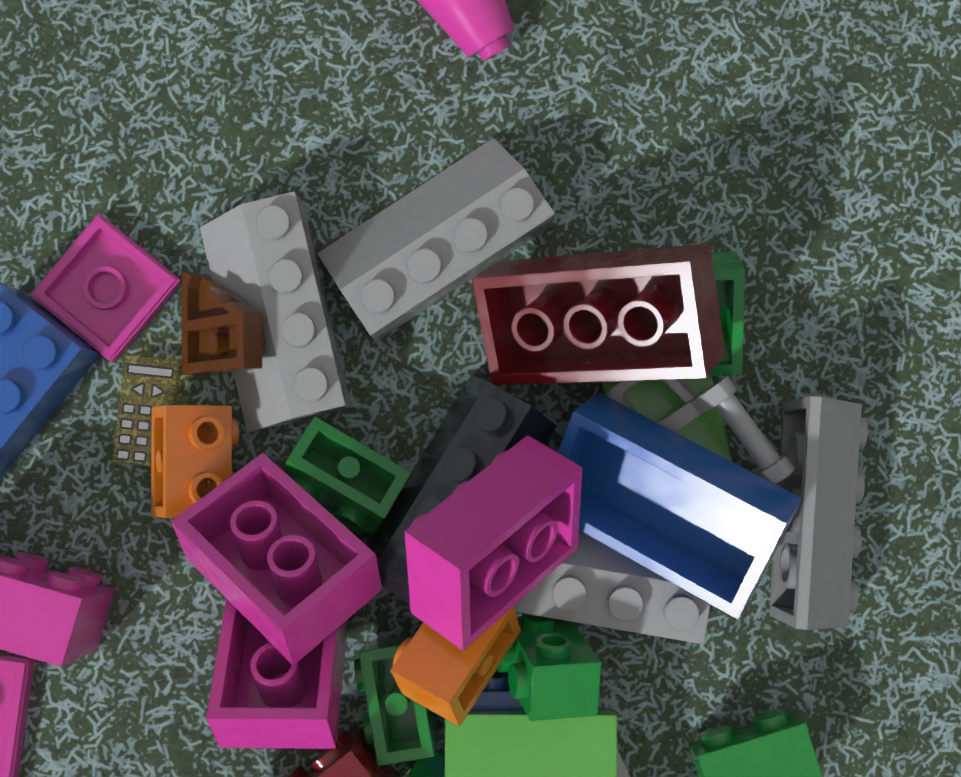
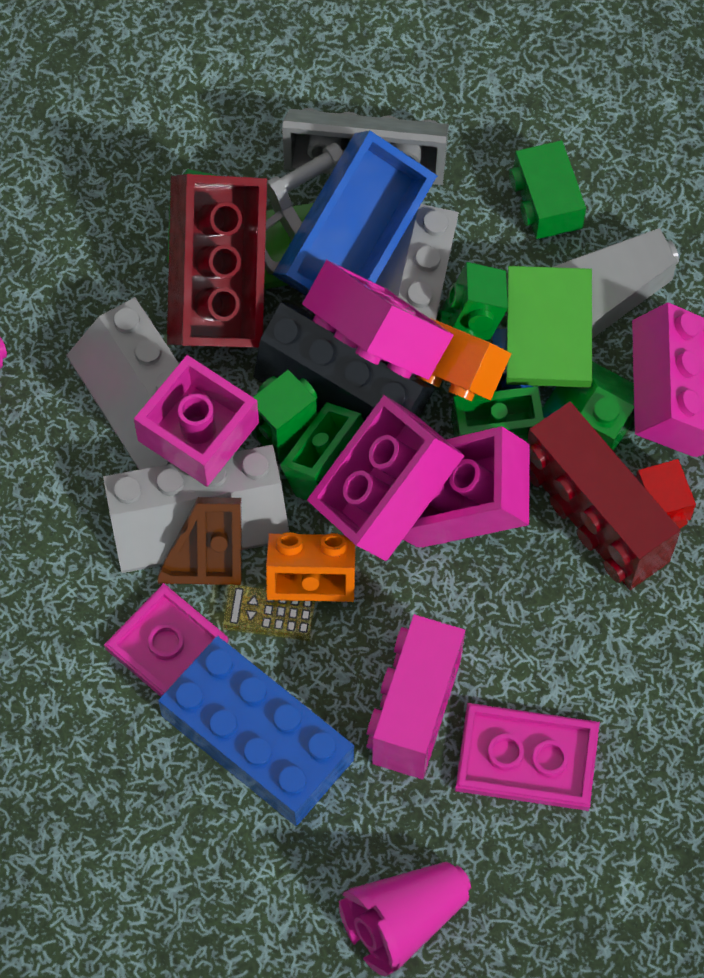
camera: 90 degrees left, 20 degrees down
(343, 301) = (197, 420): none -> dark pink brick
(392, 417) = (284, 412): none -> green brick

